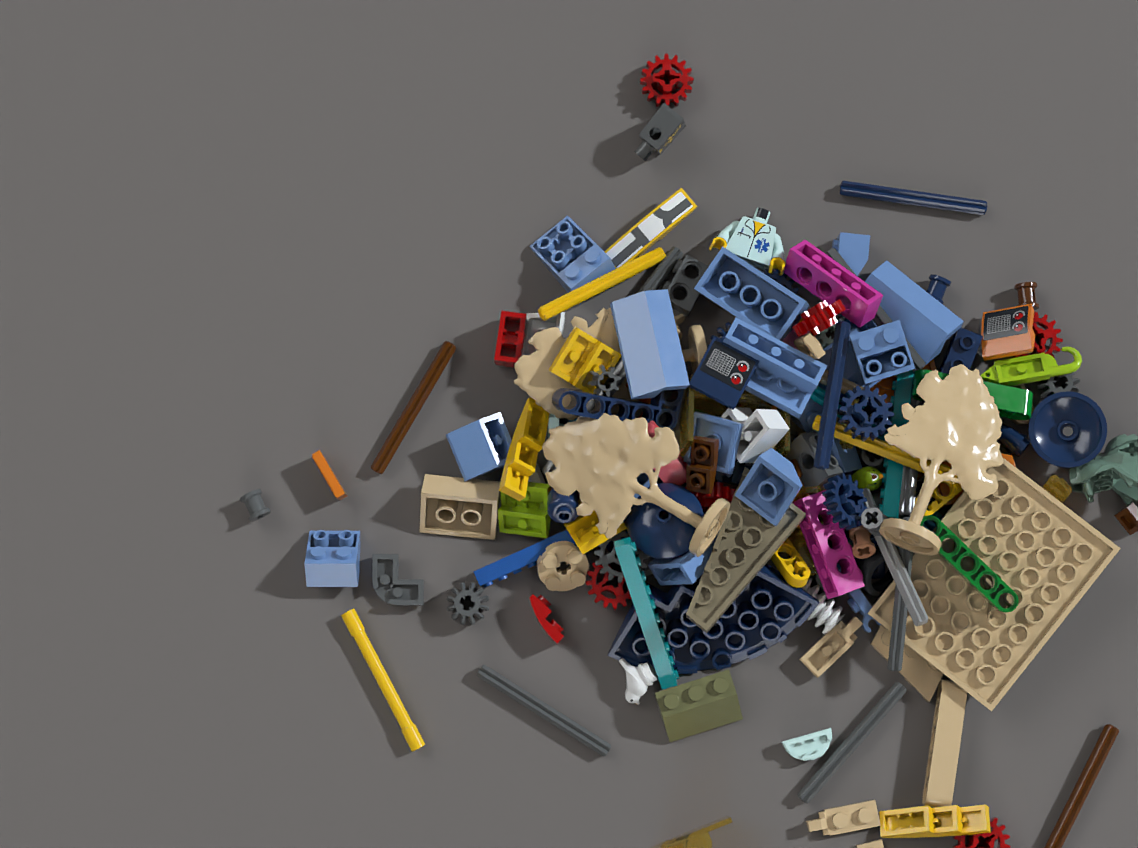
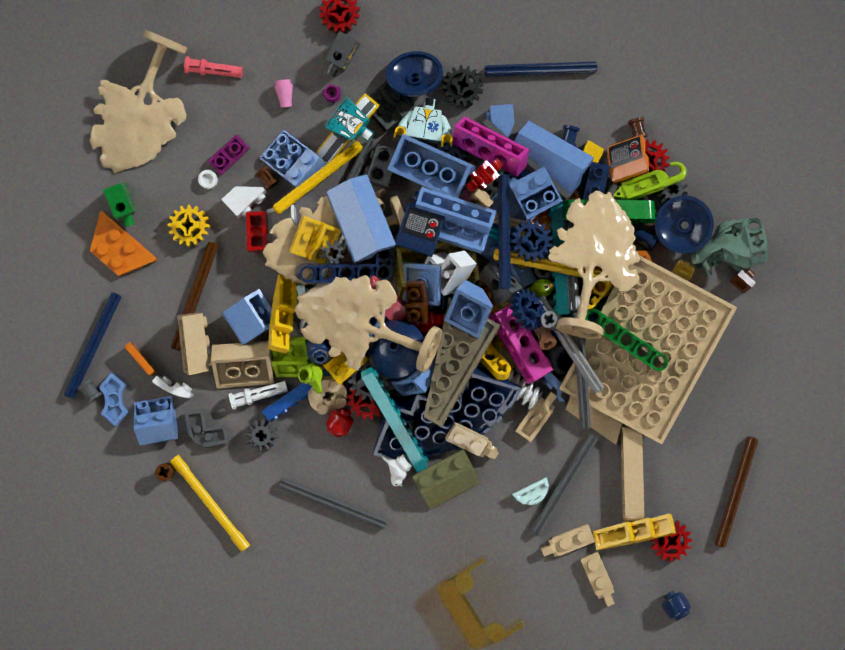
camera: 15 degrees left, 5 degrees up
(270, 447) = (92, 345): none -> dark blue axle
(282, 533) = (114, 408): none -> medium blue tile
(326, 624) = (158, 472): none -> reddish brown bush
(327, 328) = (118, 248): none -> orange wing
(338, 260) = (115, 196): none -> green torso
(369, 523) = (178, 389): none -> white slope
(374, 179) = (131, 129): none -> tan plant
(402, 466) = (194, 343): none -> tan slope
(434, 317) = (189, 234): none -> yellow gear
(458, 261) = (208, 179): none -> white tile
(458, 549) = (249, 396): none -> white pin
(478, 116) = (204, 67): none -> coral pin
(491, 235) = (229, 154): none -> magenta slope
(499, 294) = (243, 198): none -> white slope
(535, 273) = (266, 178): none -> reddish brown bush
(541, 609) = (317, 430): red slope -> none
(549, 535) = (312, 375): none -> lime animal
(572, 605) = (339, 422): none -> red head
(577, 168) = (284, 92): none -> bright pink cone
(642, 176) = (331, 98): none -> magenta plate
(656, 220) = (349, 122): none -> torso
(714, 210) = (392, 106): none -> pearl dark grey slope
(740, 661) = (471, 441): none -> tan hinge
(749, 174) = (414, 73): none -> dark blue dish
(817, 206) = (469, 88): none -> pearl dark grey gear
(965, 313) = (593, 150): none -> yellow slope

